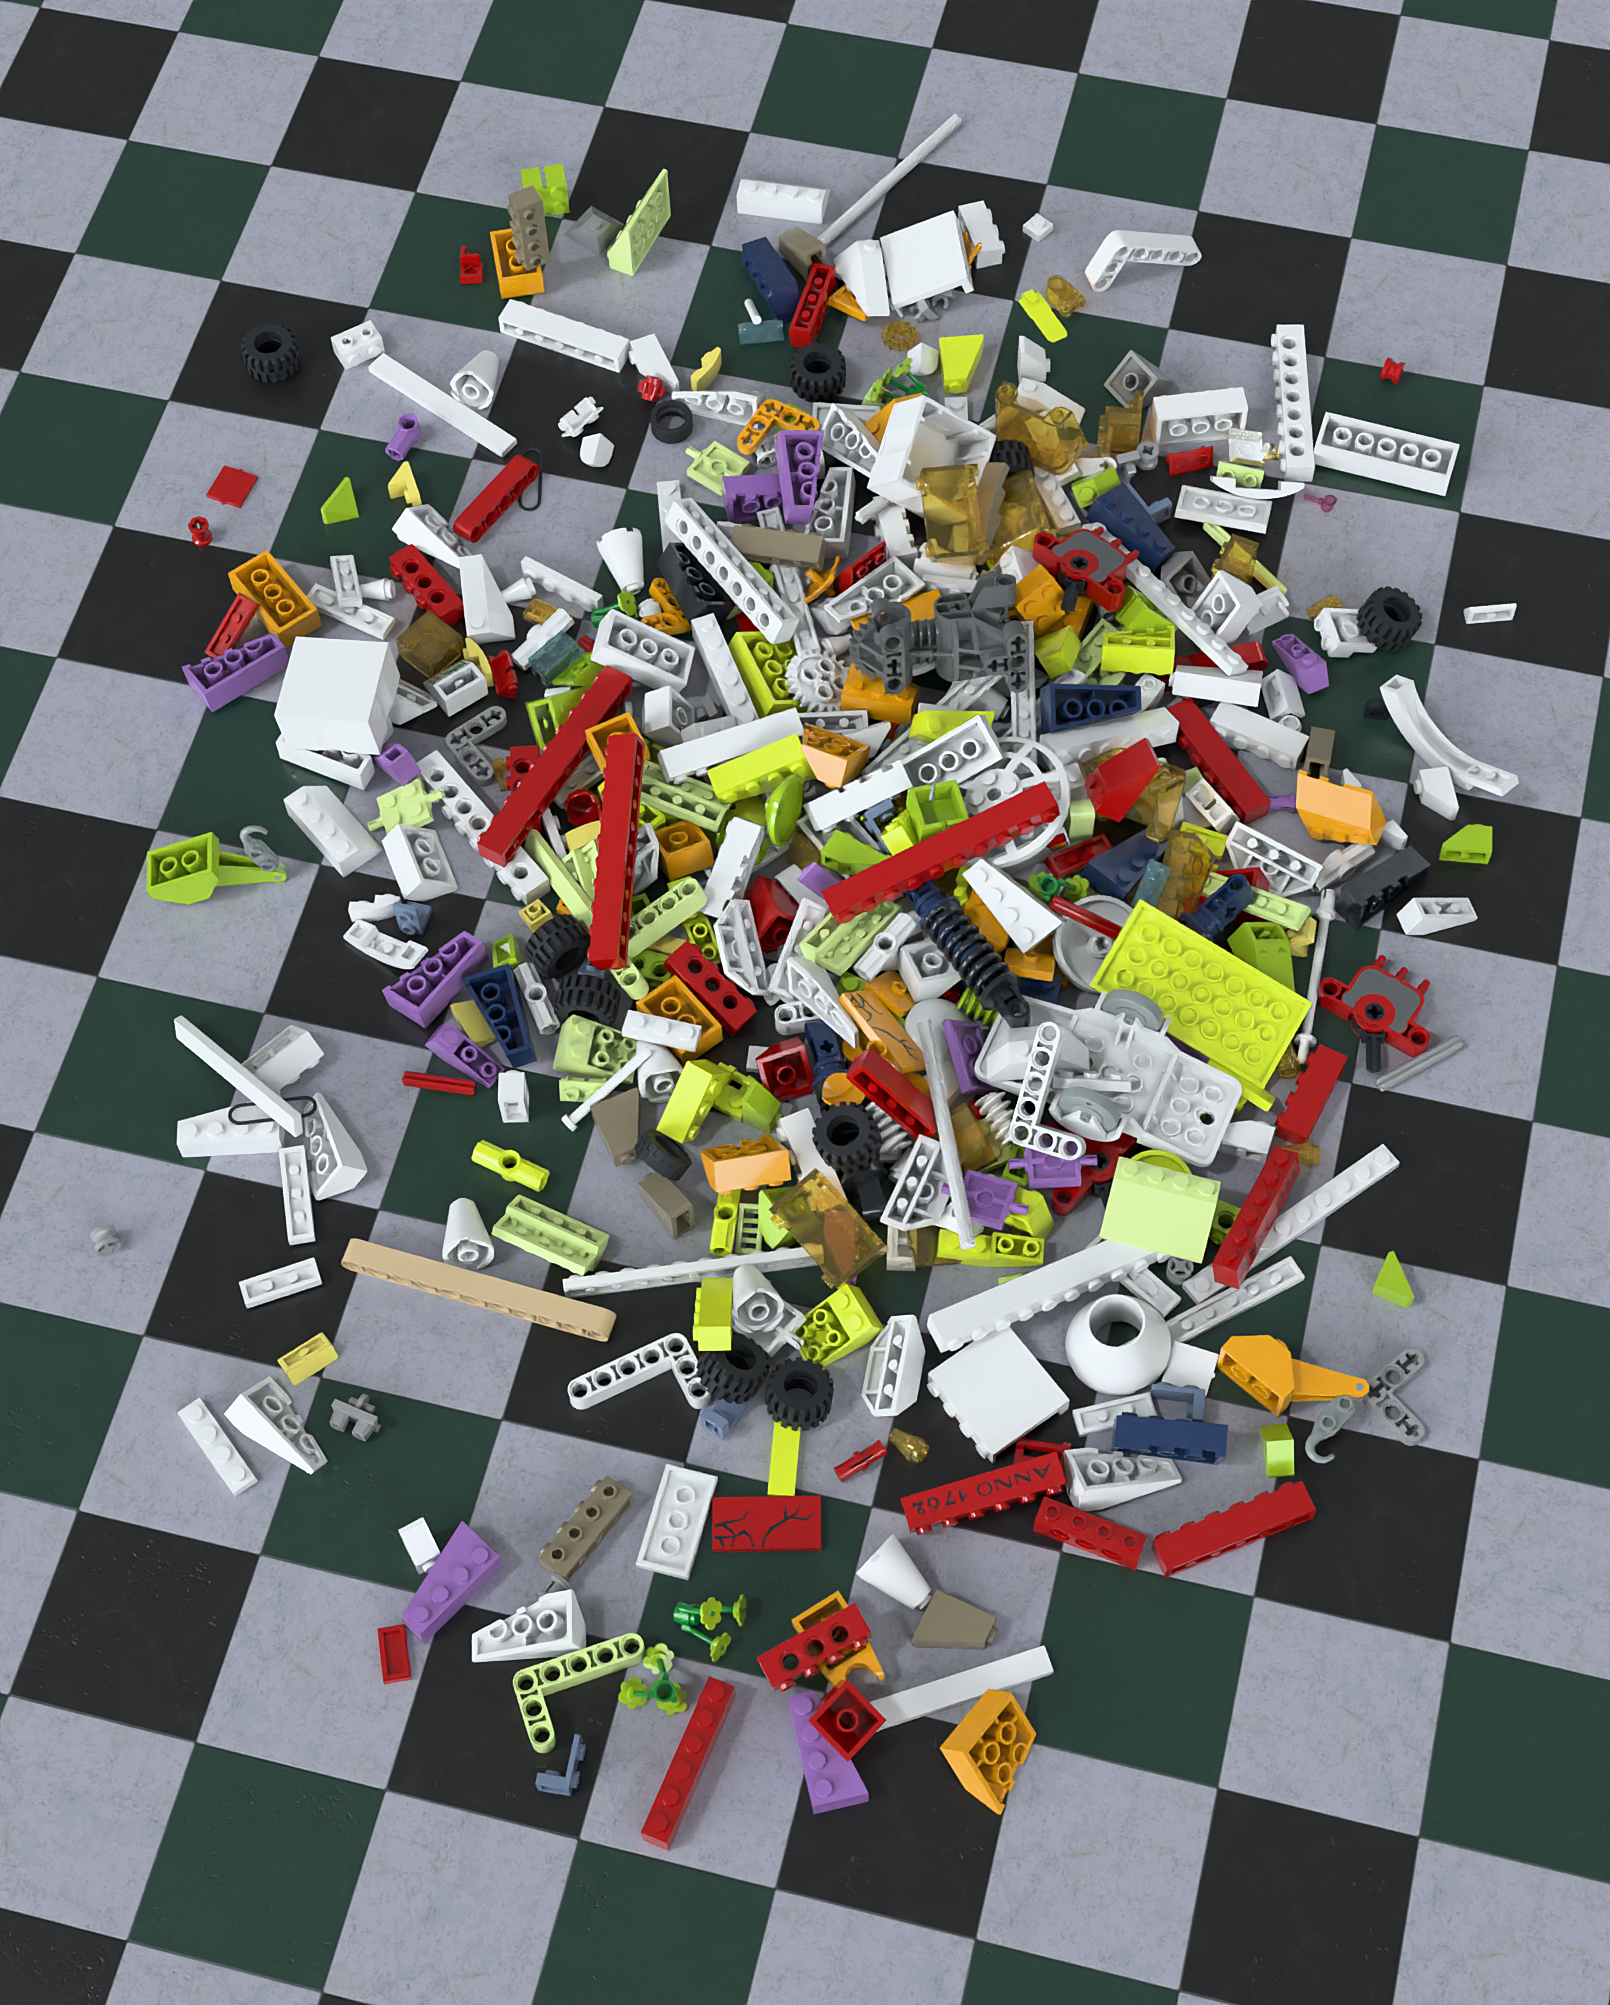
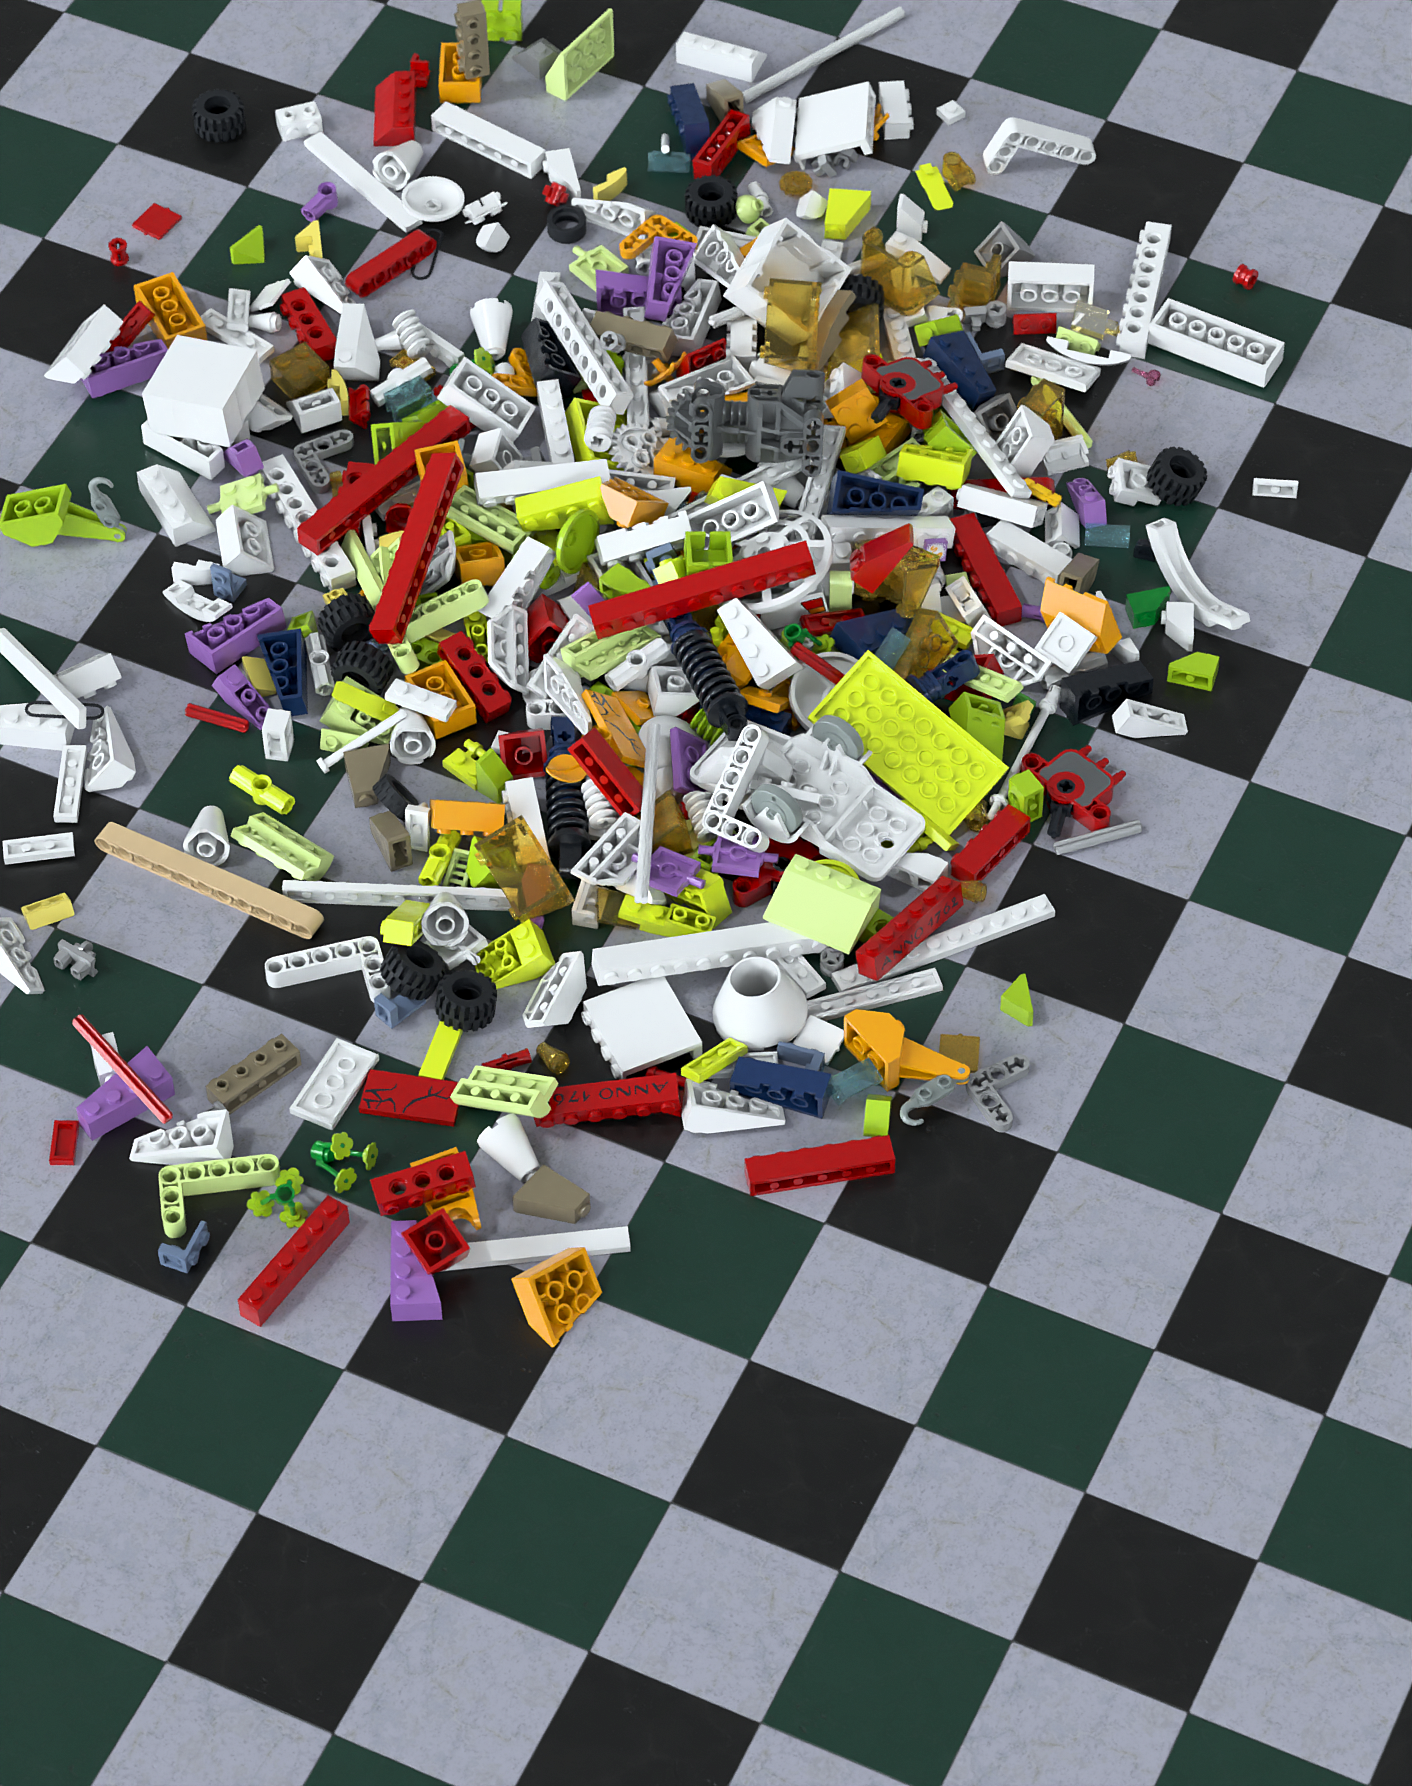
camera: 10 degrees right, 10 degrees down
(193, 658) = (85, 347): none -> white slope
(375, 558) = (269, 295): none -> white piece
(444, 1562) = (120, 1066): none -> axle
(457, 316) = (395, 109): none -> red slope
(524, 416) = (433, 199): none -> white dish
(541, 584) = (411, 334): none -> white piece
(599, 1041) = (363, 701): none -> neon yellow piece
(692, 1099) = (434, 760): neon yellow wedge -> none
(694, 1183) = (418, 826): none -> white tile
(757, 565) = (610, 335): none -> light grey bush
(774, 666) = (600, 428): none -> white piece
(837, 1120) = (554, 788): black tyre -> none
(859, 373) = (748, 208): none -> yellowish green brick
(867, 360) = (756, 191): none -> white pin
(874, 1506) = (505, 1091): none -> yellowish green brick
(902, 369) = (774, 215): plant -> none
(1088, 1420) = (714, 1060): none -> neon yellow tile
(1089, 1533) = (691, 1147): red brick -> none
(1164, 747) = (937, 546): none -> tile
(1245, 1415) = (854, 1080): none -> clear light blue hinge
(1258, 663) = (1043, 493): none -> yellow axle
(1332, 698) = (1107, 535): none -> clear light blue hinge
(1333, 842) = (1065, 643): none -> white plate
(1336, 1030) = (1026, 794): none -> lime brick
(1343, 1354) = (961, 1049): none -> clear yellow piece
(1395, 777) = (1146, 606): none -> green slope

